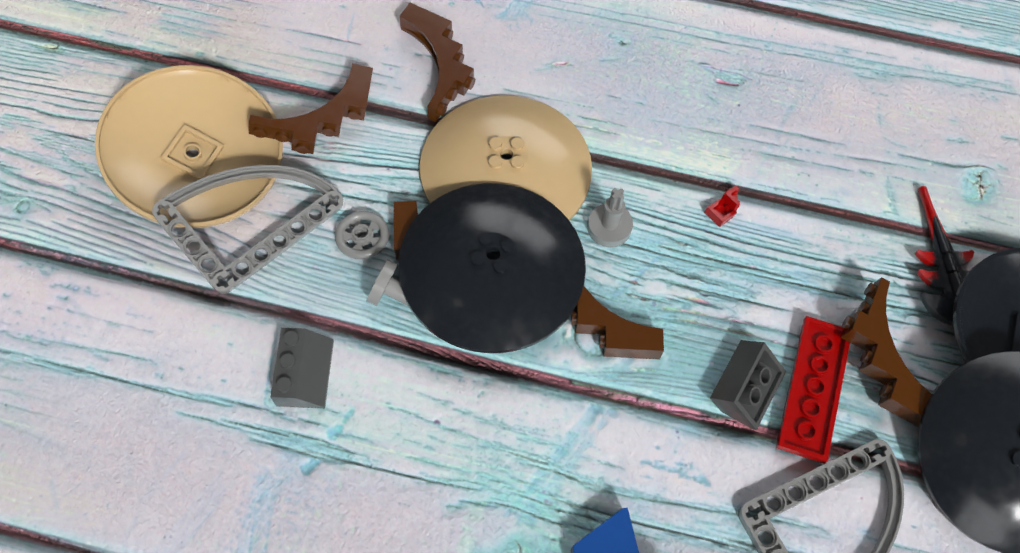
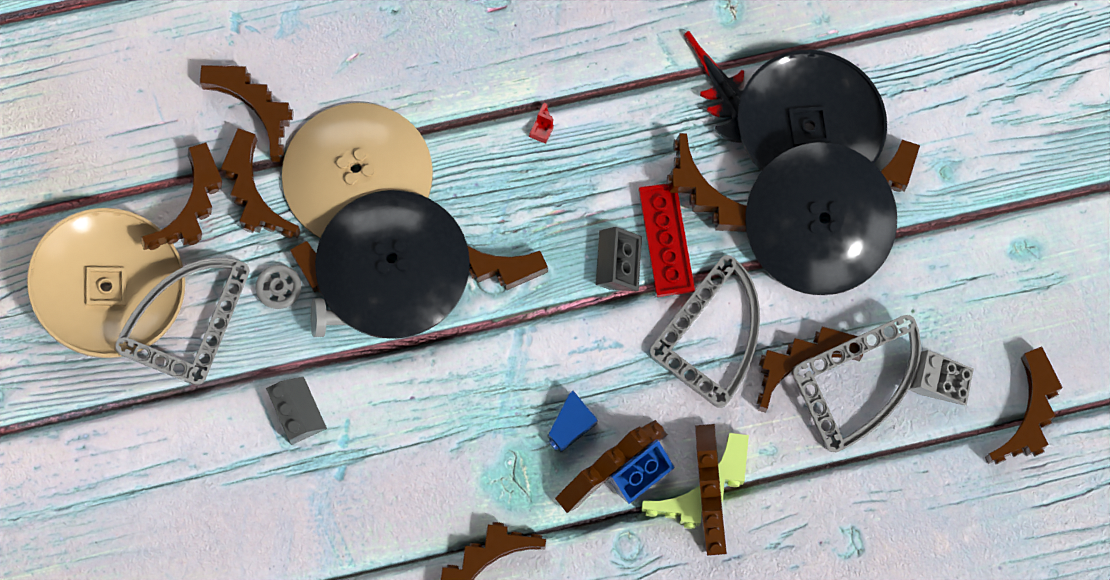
camera: 25 degrees left, 10 degrees up
(391, 107) = (239, 166): none -> reddish brown arch
(610, 222) = (462, 183): light grey piece -> none

